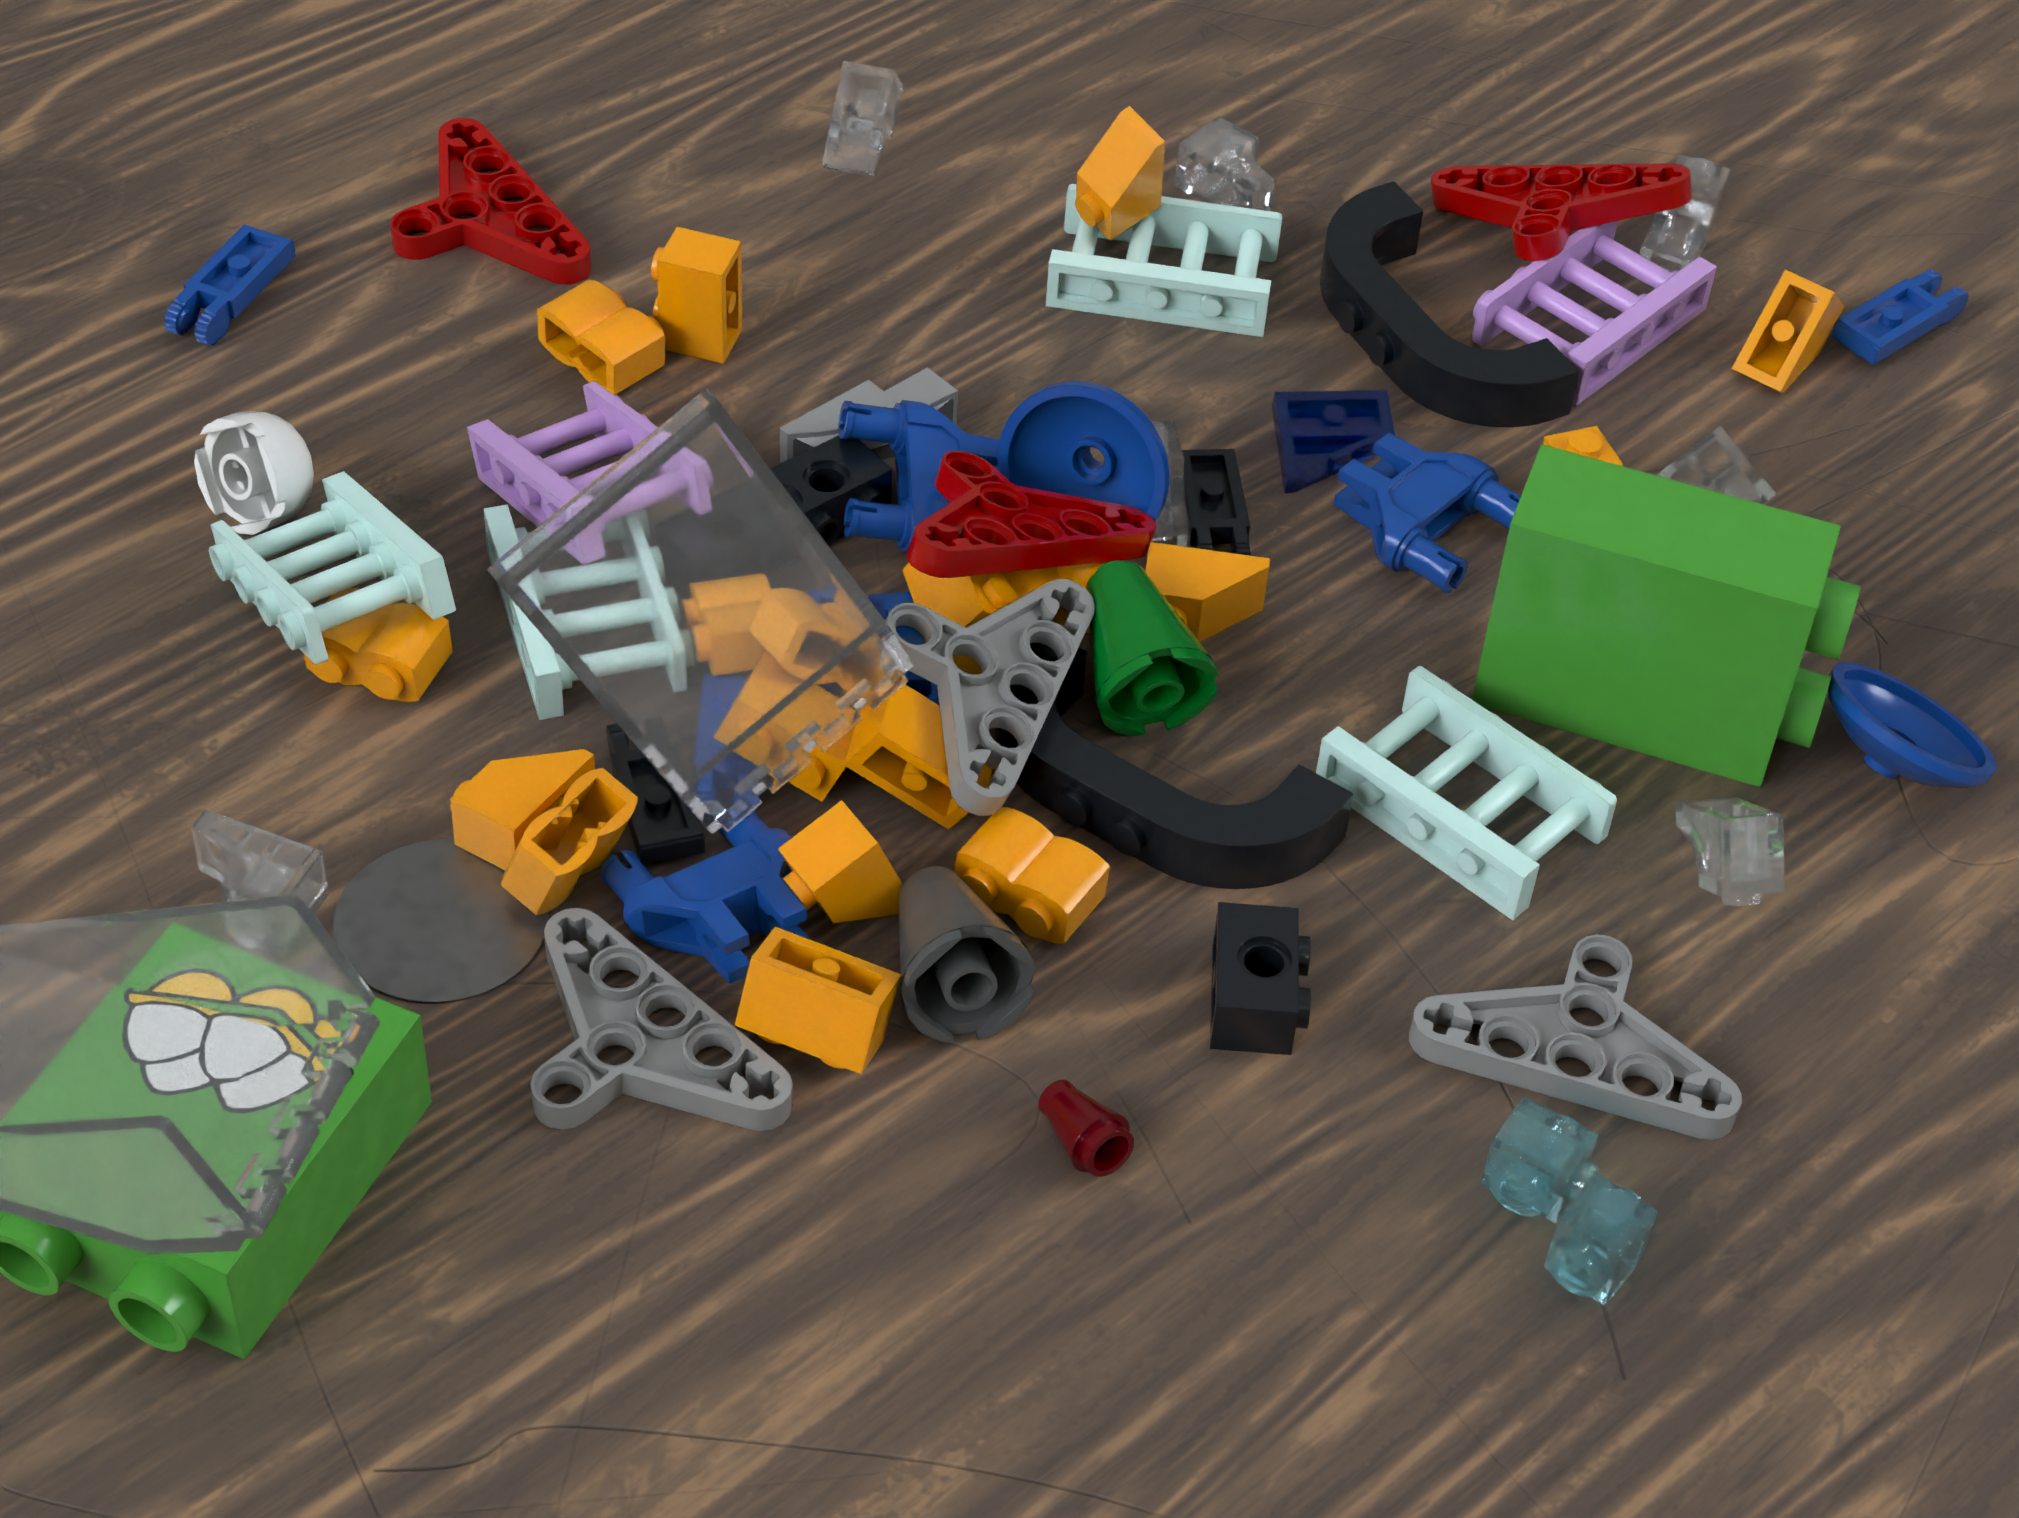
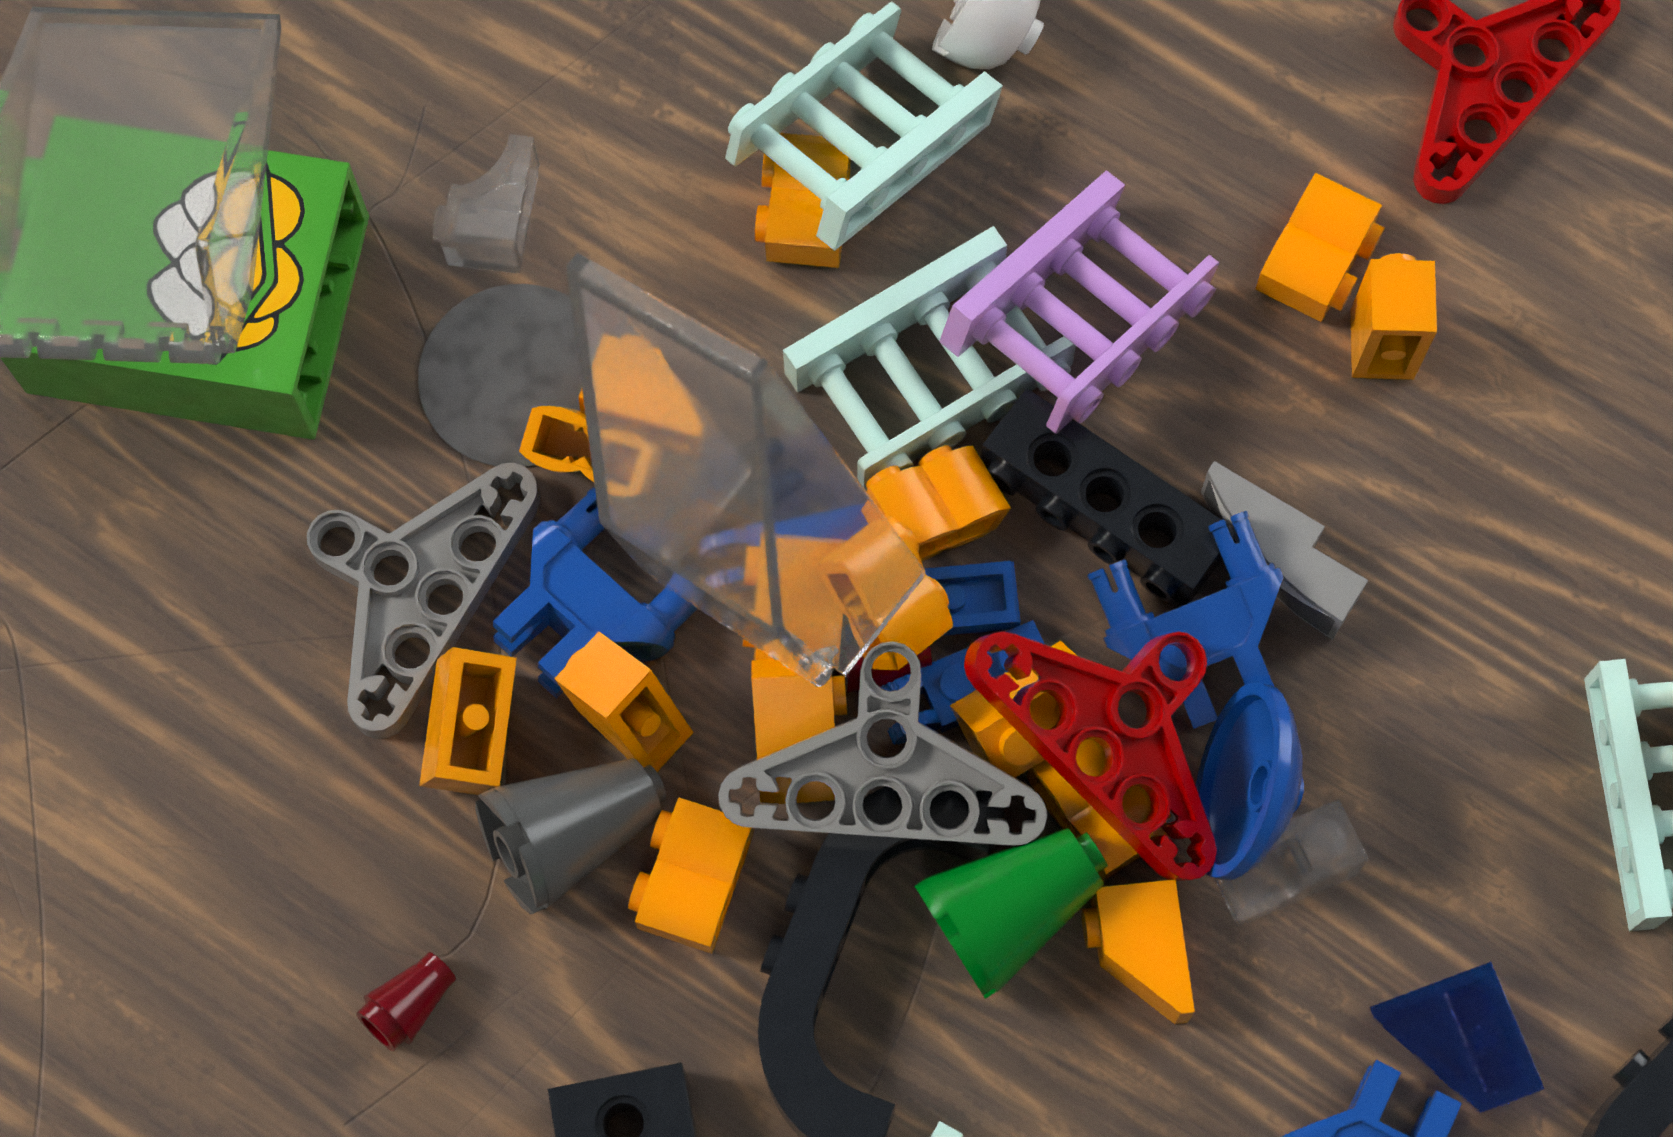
camera: 80 degrees right, 25 degrees up
(1215, 500) = (1295, 936): black hinge -> none

